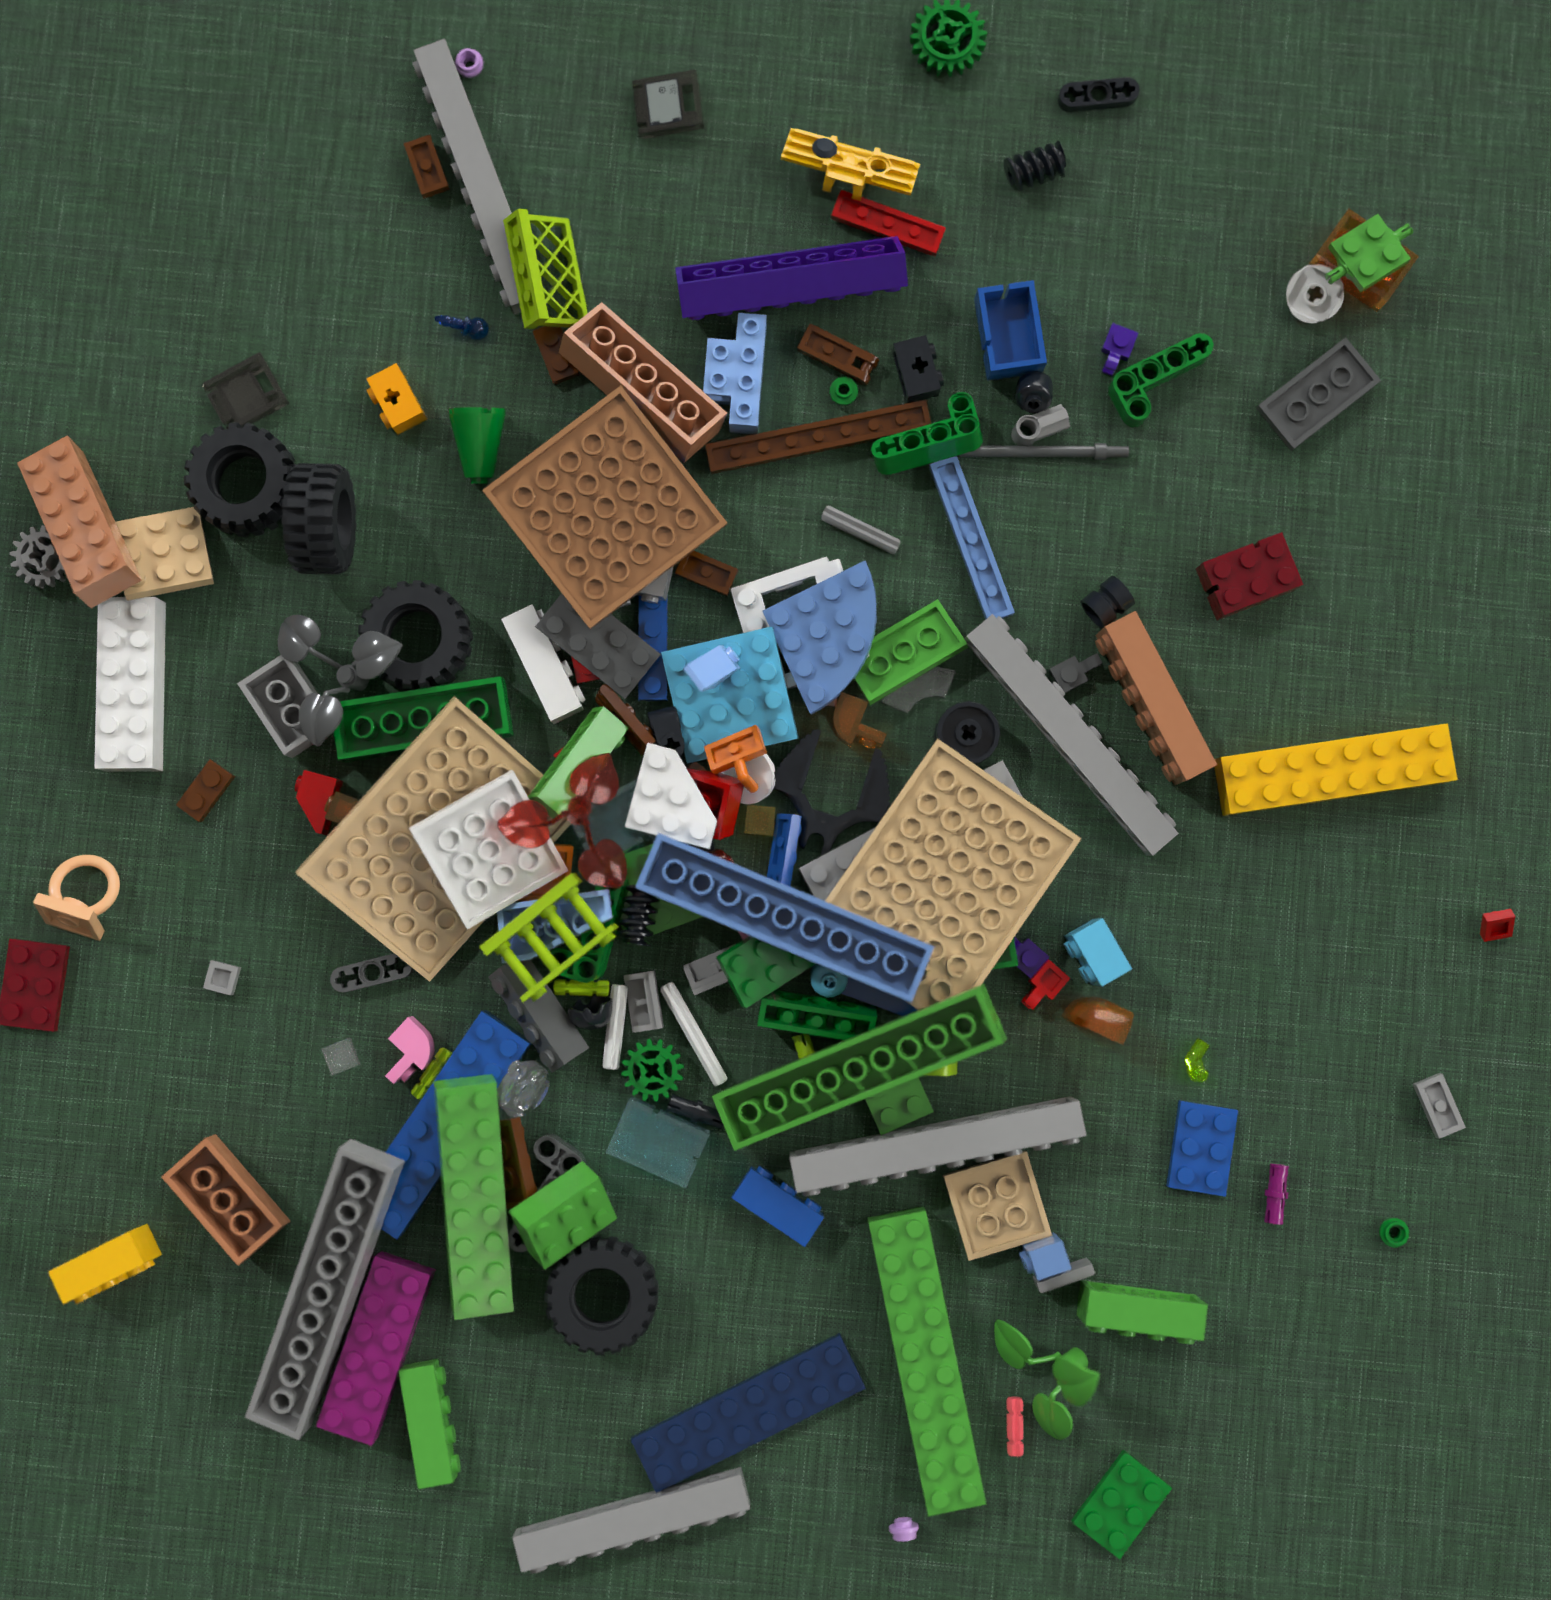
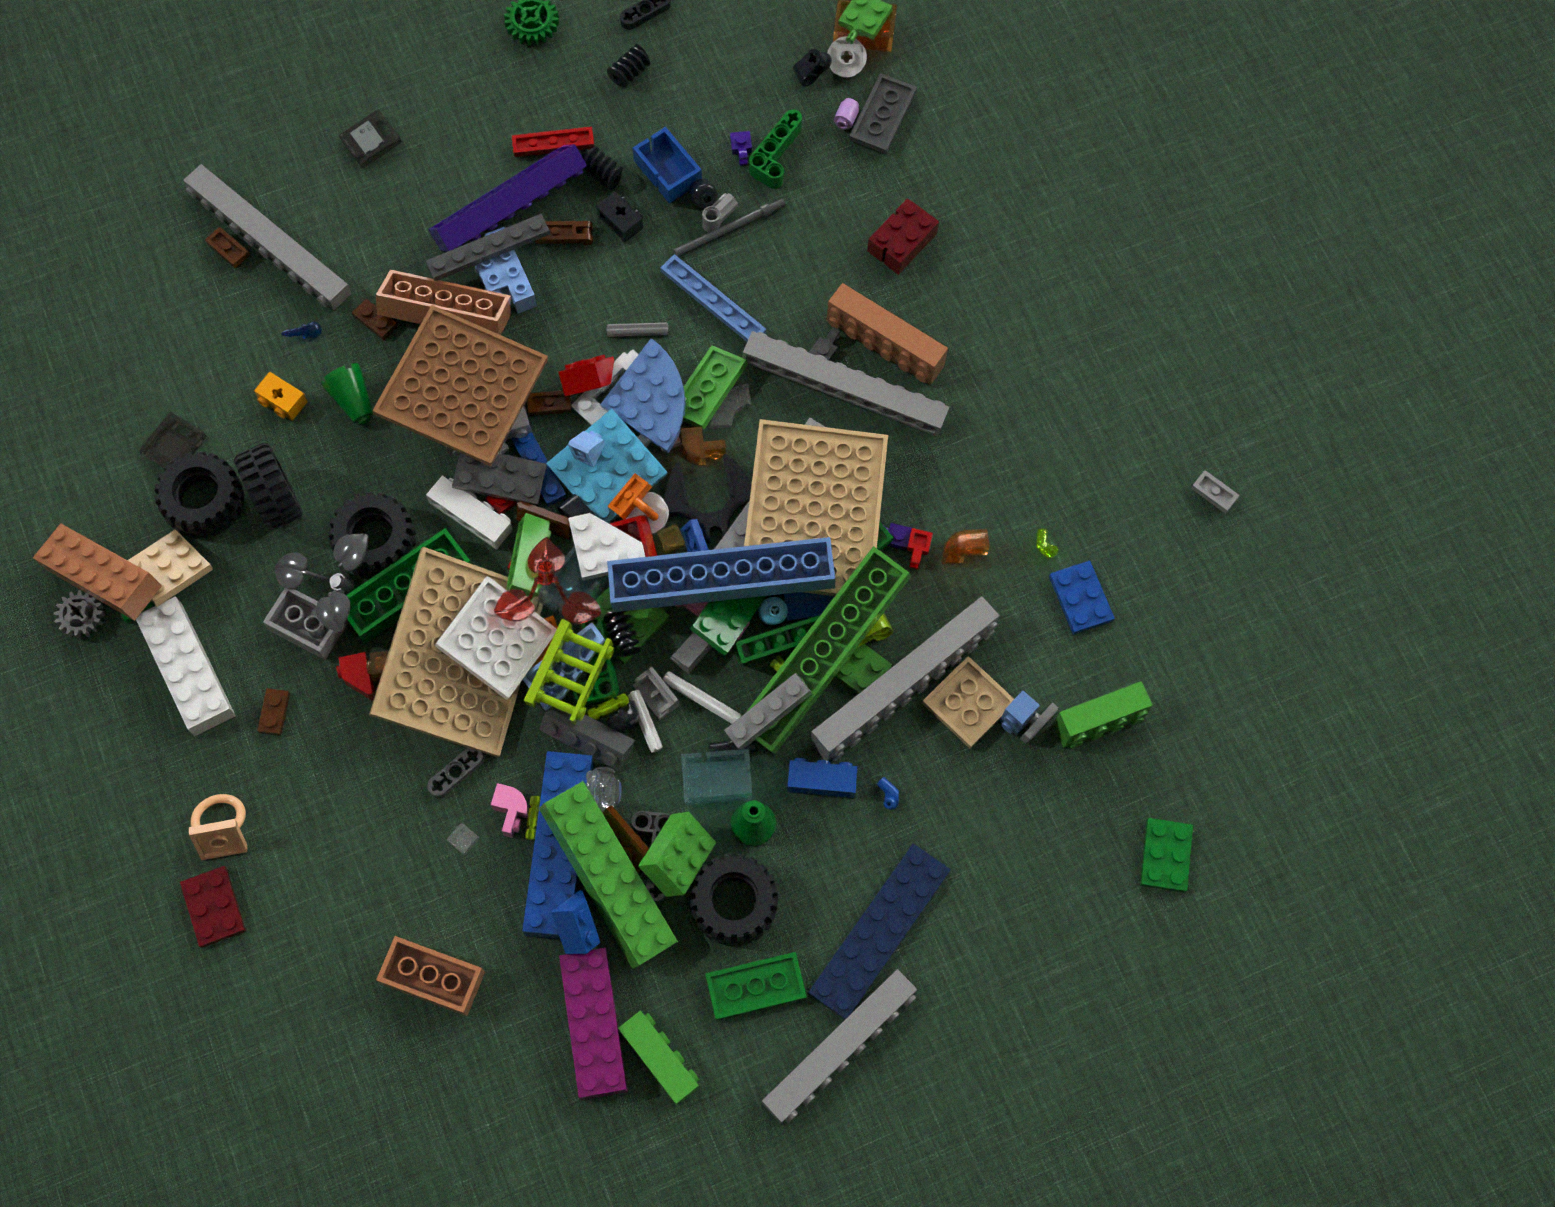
camera: 30 degrees left, 15 degrees down
(106, 1265) = (365, 1067): yellow brick -> none
(222, 977) = (349, 829): light grey plate -> none
(324, 1288) = (535, 994): light grey brick -> none
(410, 1235) = (576, 925): none -> blue slope
(465, 56) = (224, 169): lavender plate -> none
(528, 269) = (336, 276): lime fence -> none
(576, 1401) = (755, 986): none -> green plate
(668, 1081) = (694, 736): green gear -> none
(676, 1202) = (753, 823): none -> green cone
(731, 335) = (488, 247): none -> dark grey plate
(752, 1109) = (768, 711): none -> light grey brick
(766, 565) = (586, 374): none -> red slope
(815, 436) = (577, 287): reddish brown plate -> none
(839, 398) = (579, 257): green plate -> none
(847, 1264) = (891, 793): none -> blue arm
(849, 163) = (514, 116): yellow piece -> none
(903, 1529) = (1030, 949): lavender plate -> none
(926, 1361) = (980, 827): bright green brick -> none
(928, 291) = (601, 169): none -> black piece
(933, 441) = (654, 253): green beam -> none
(978, 722) = (777, 406): black wheel -> none
(1015, 1426) = (1065, 841): coral axle -> none
(1069, 1370) = (1081, 773): bright green plant -> none
(1096, 952) = (940, 505): medium azure brick -> none
(1111, 599) = (822, 291): black wheel -> none
(1264, 285) = (811, 66): none -> black piece
(1271, 372) = (846, 113): none -> lavender brick
(1276, 1194) = (1146, 600): magenta pin -> none
(1335, 769) = (1024, 323): yellow brick -> none
(1402, 1232) = (1240, 581): green plate -> none
(1497, 925) = (1183, 364): red plate -> none

